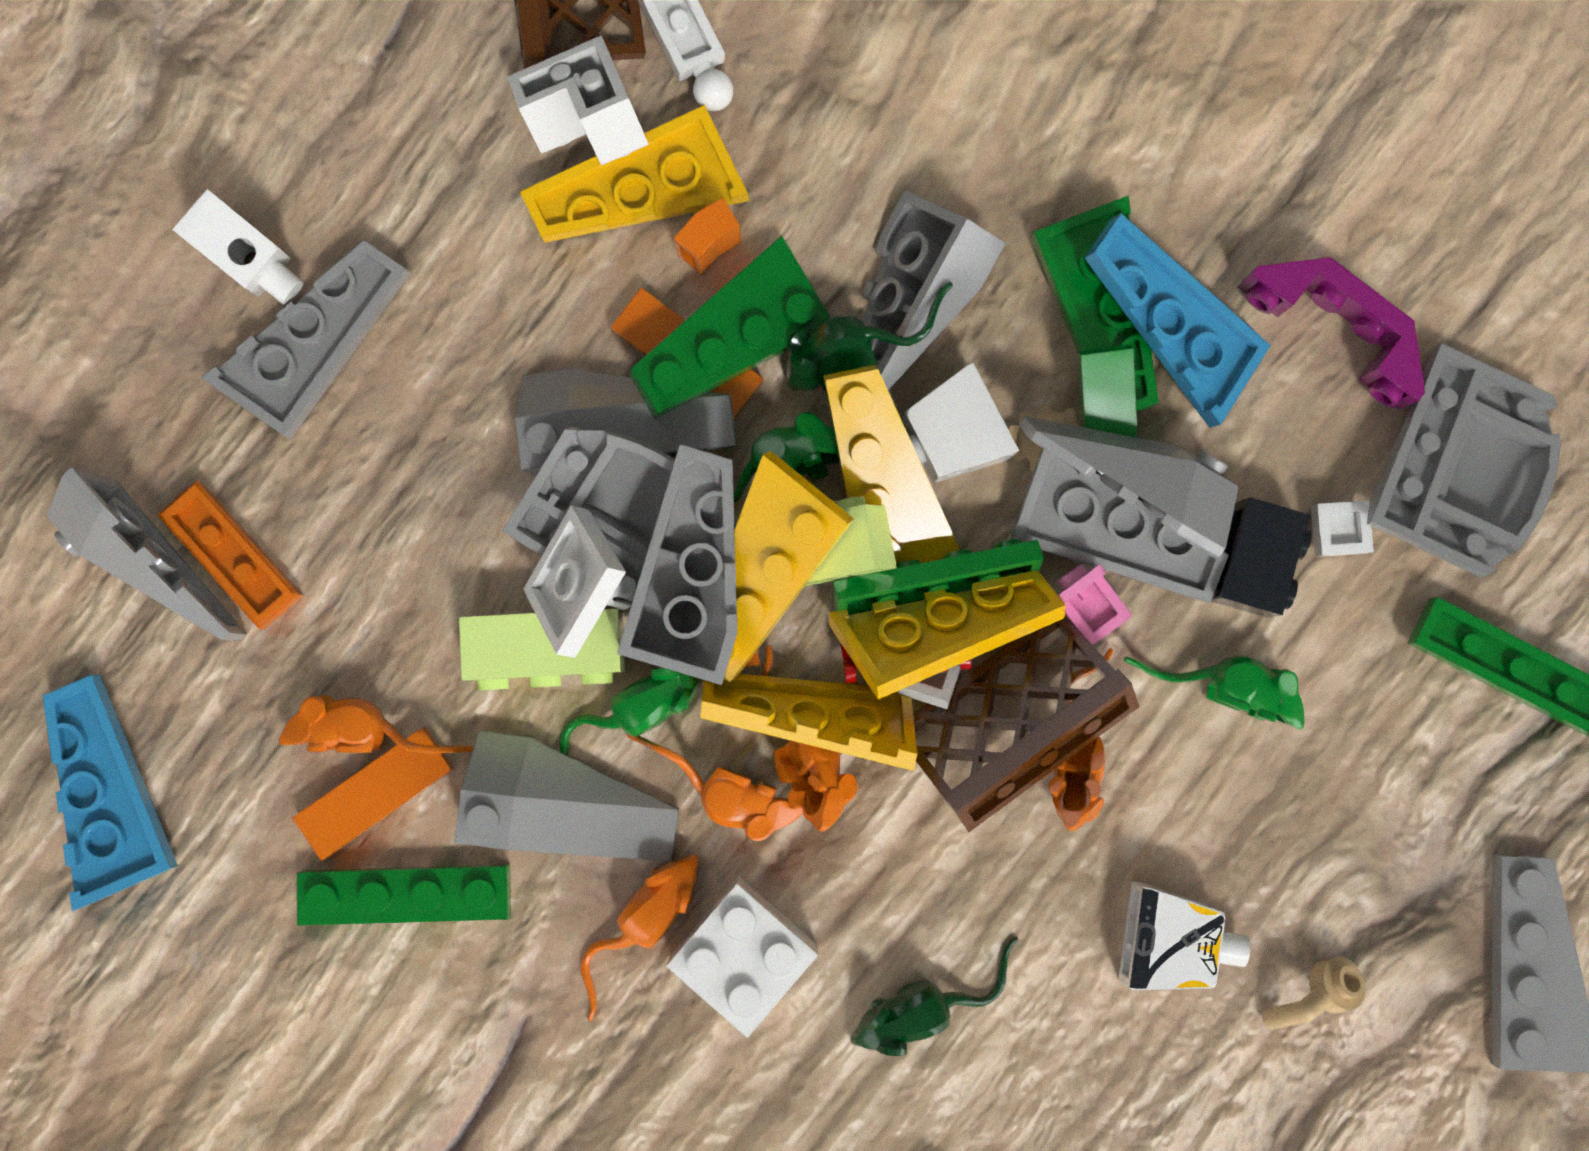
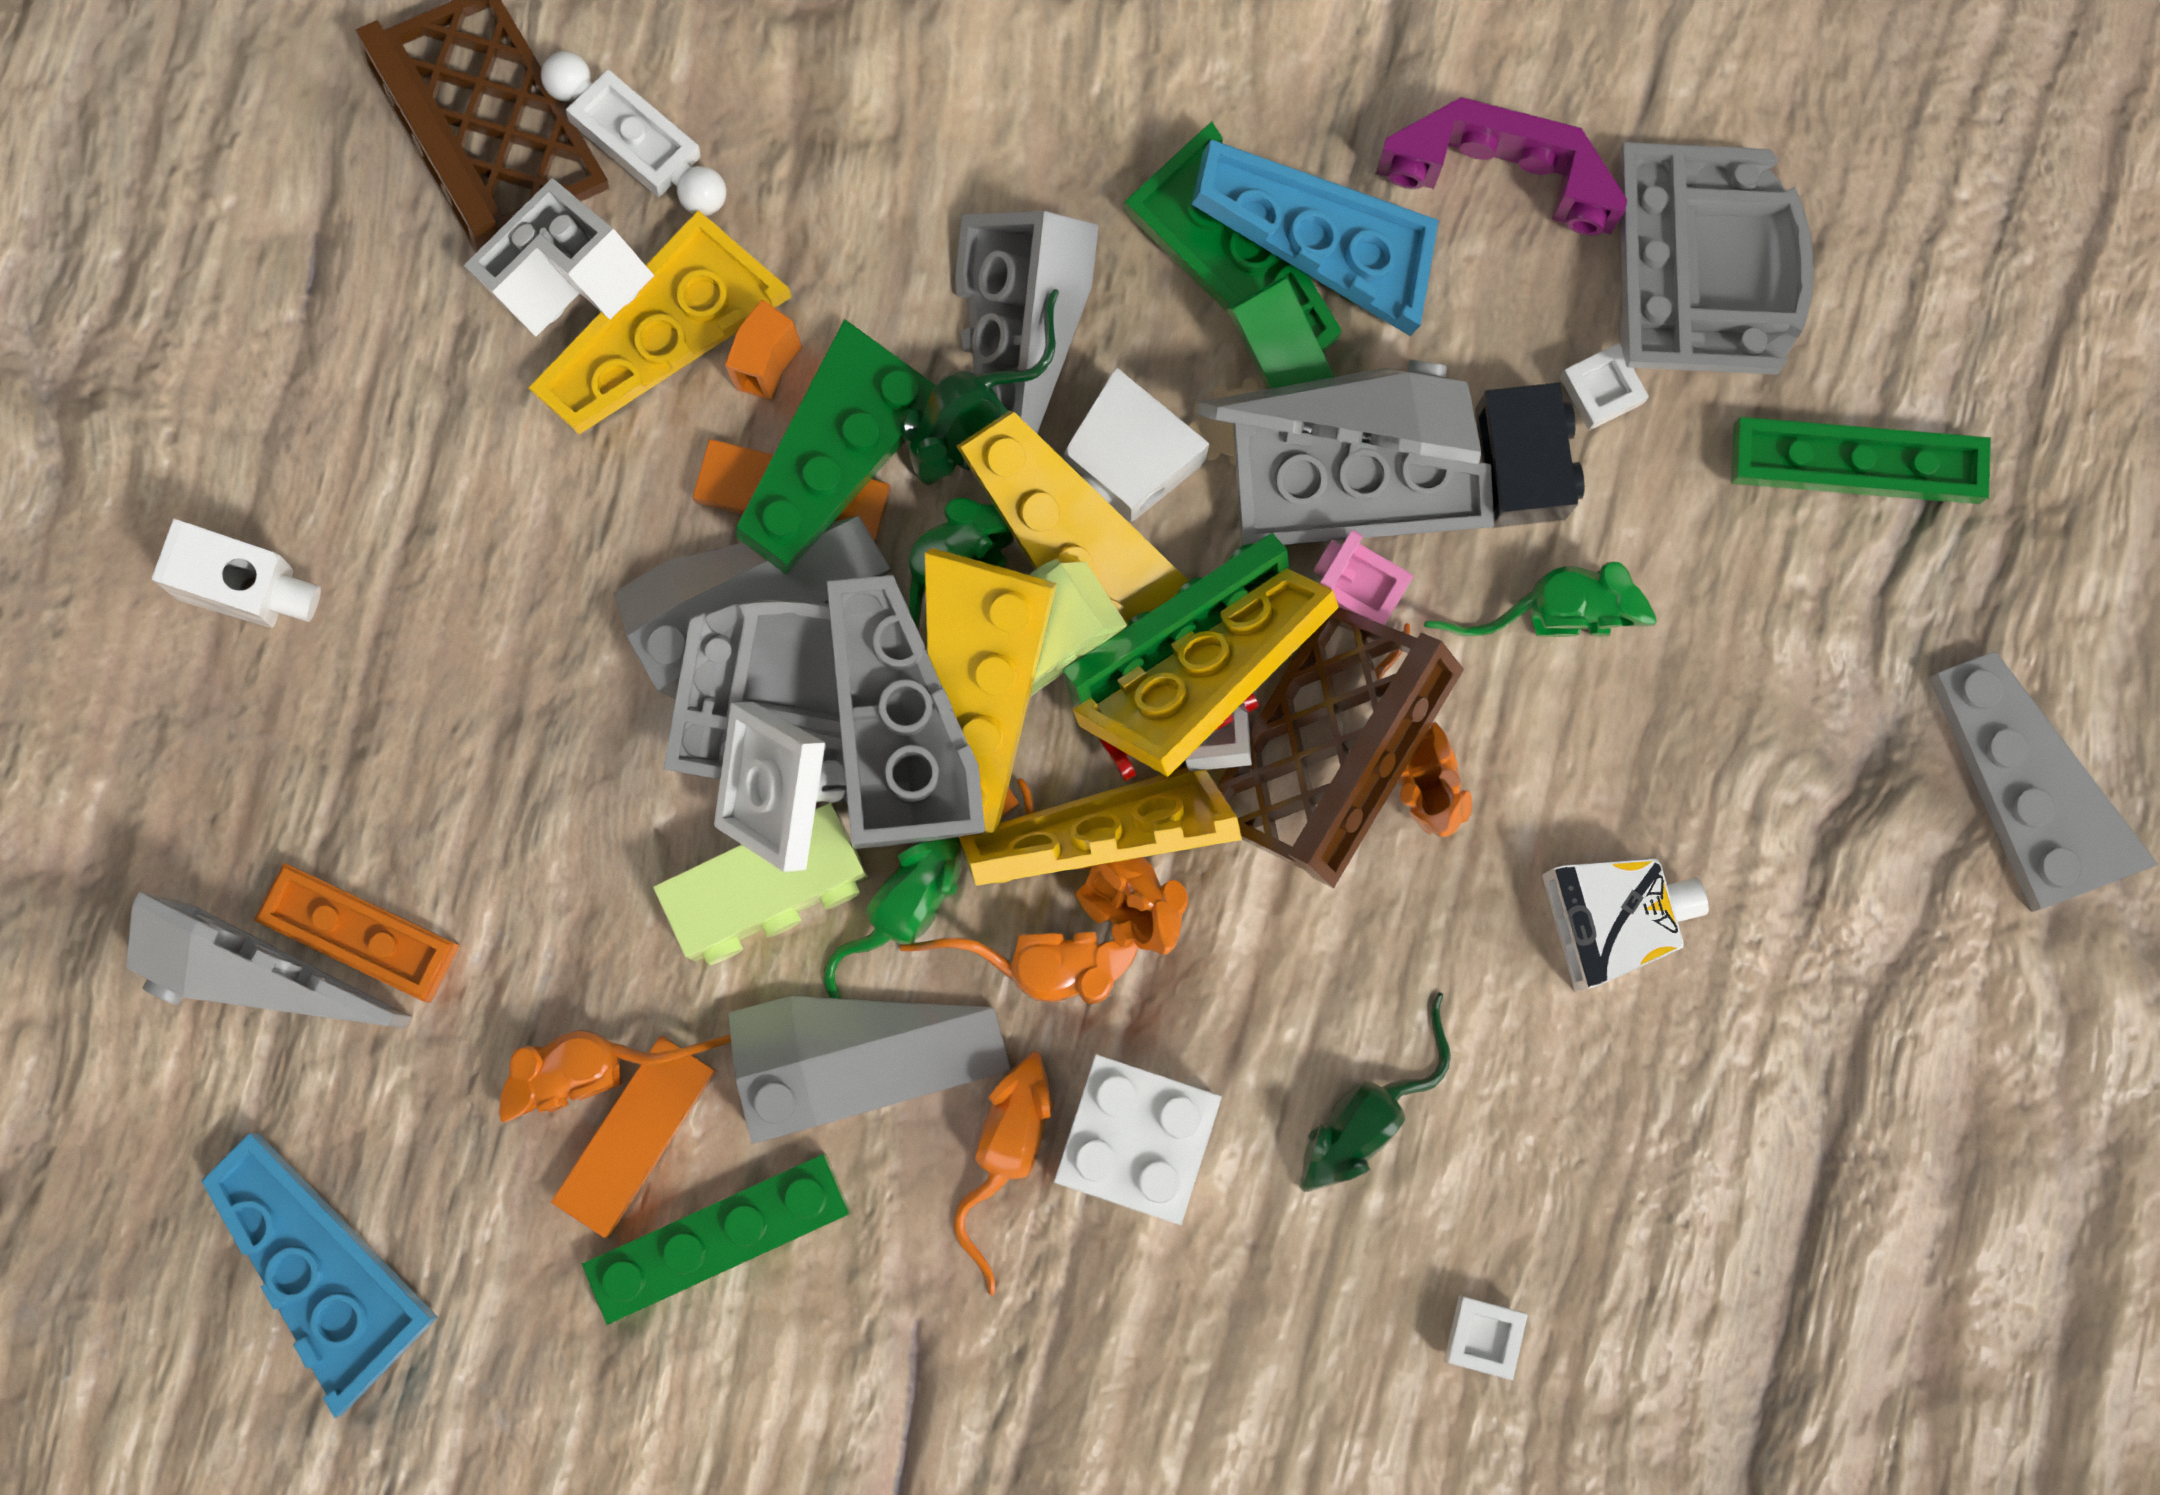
camera: 20 degrees left, 5 degrees down
(306, 347) = (350, 667): light grey wing -> none
(1334, 988) = (1818, 895): tan plate -> none

